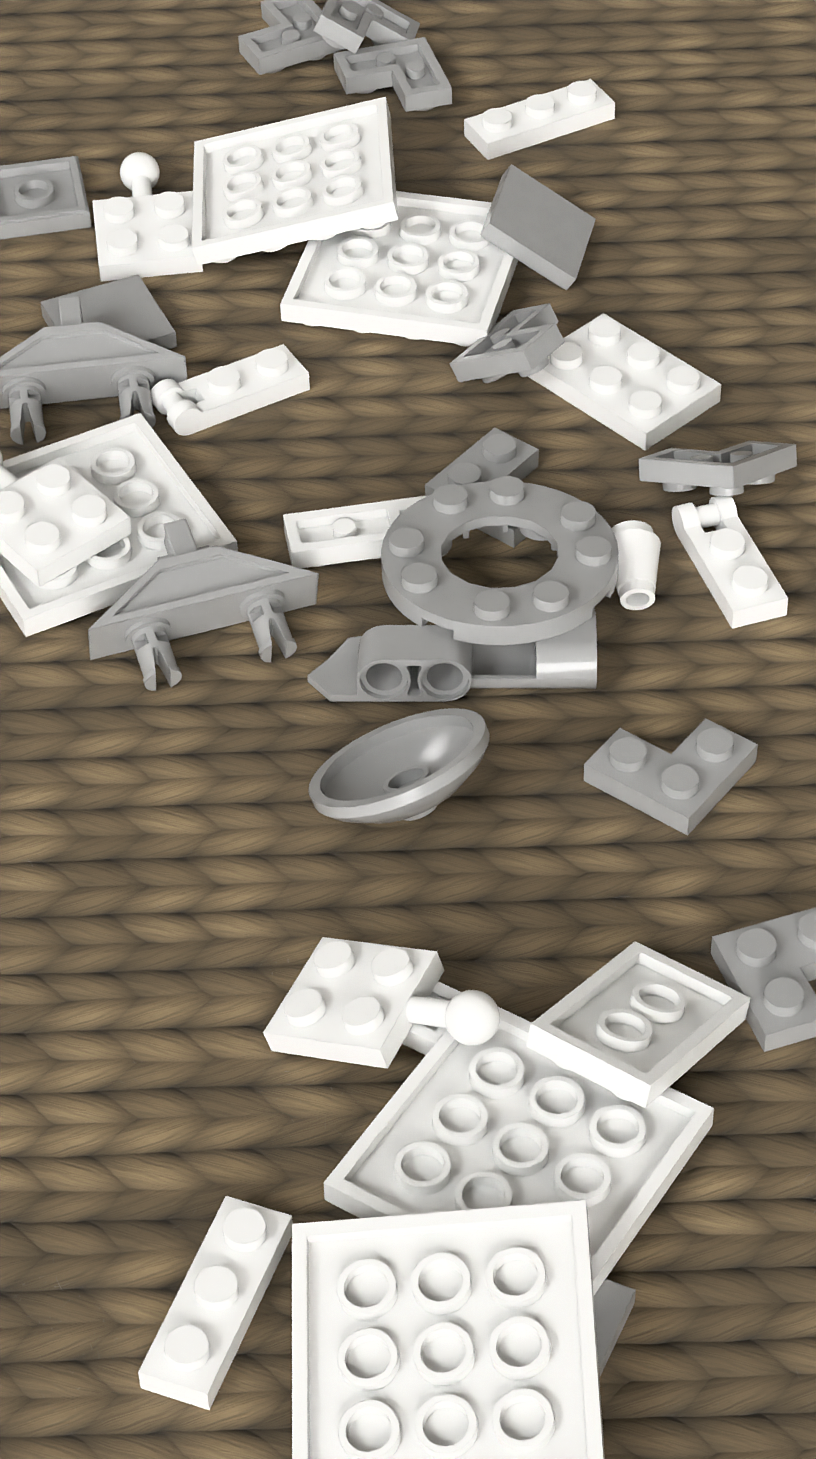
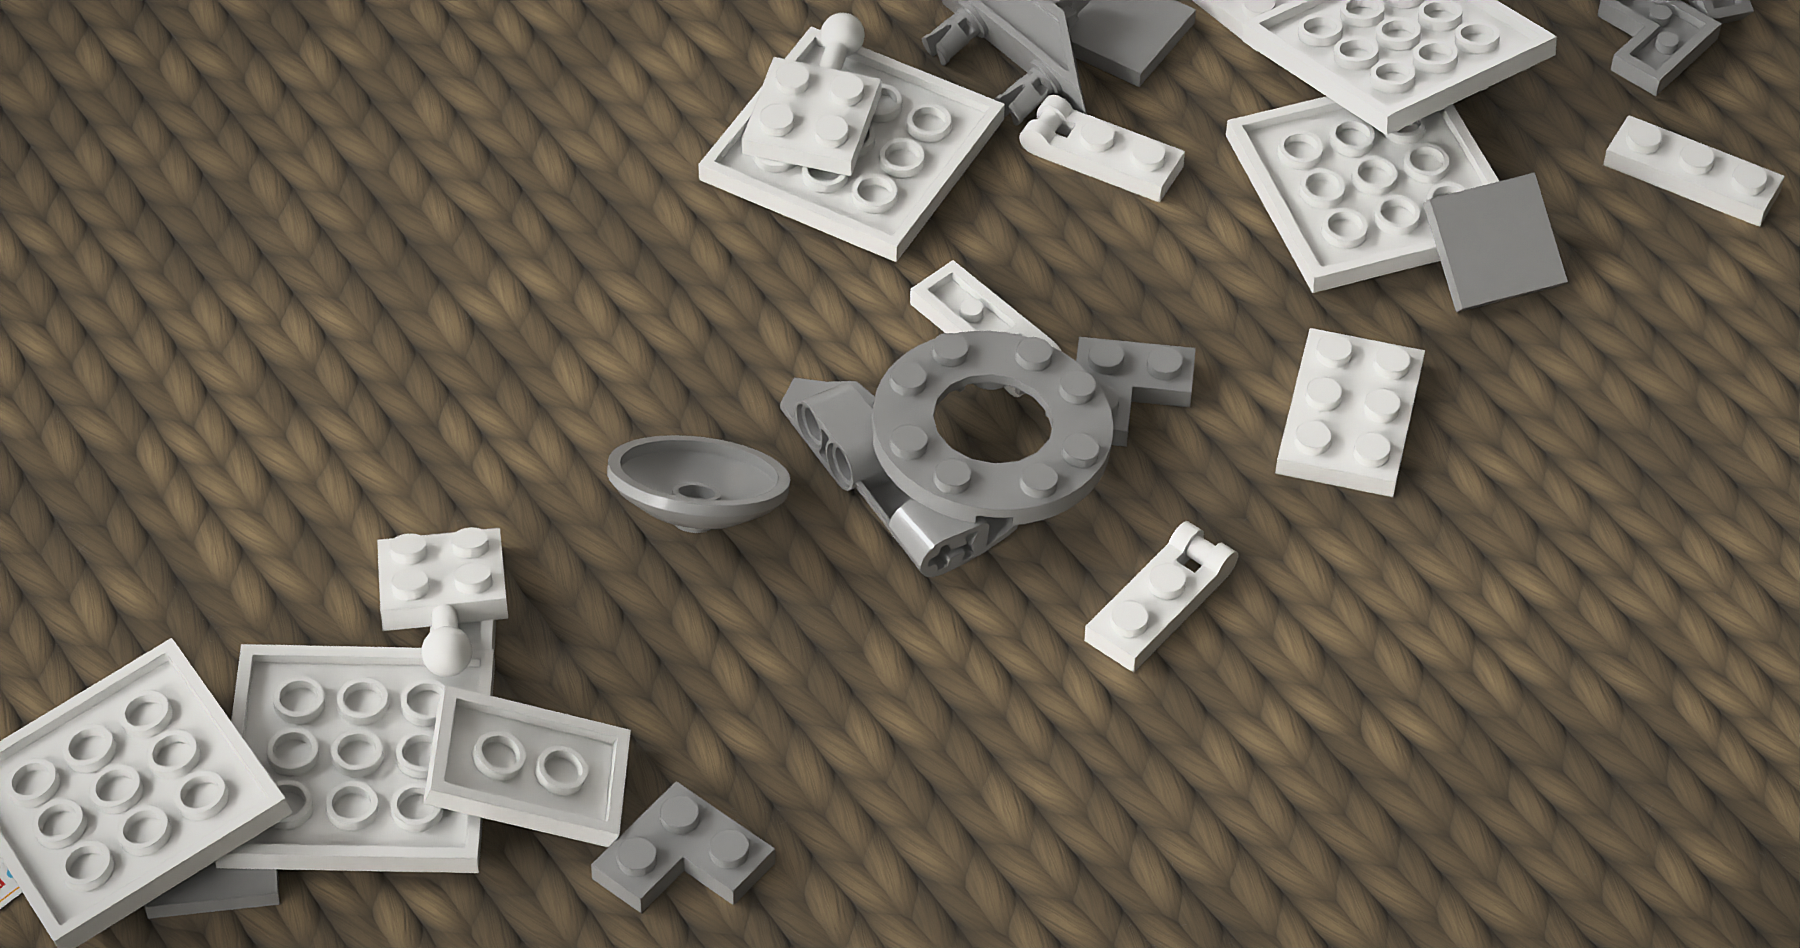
camera: 55 degrees right, 5 degrees up
(197, 593) = (802, 248): light grey connector -> none
(216, 1303) = (105, 642): white plate -> none
(512, 346) = (1293, 305): light grey plate -> none
(636, 563) = (1091, 527): white cone -> none
(677, 785) = (853, 688): light grey plate -> none
(721, 470) = (1251, 530): light grey plate -> none

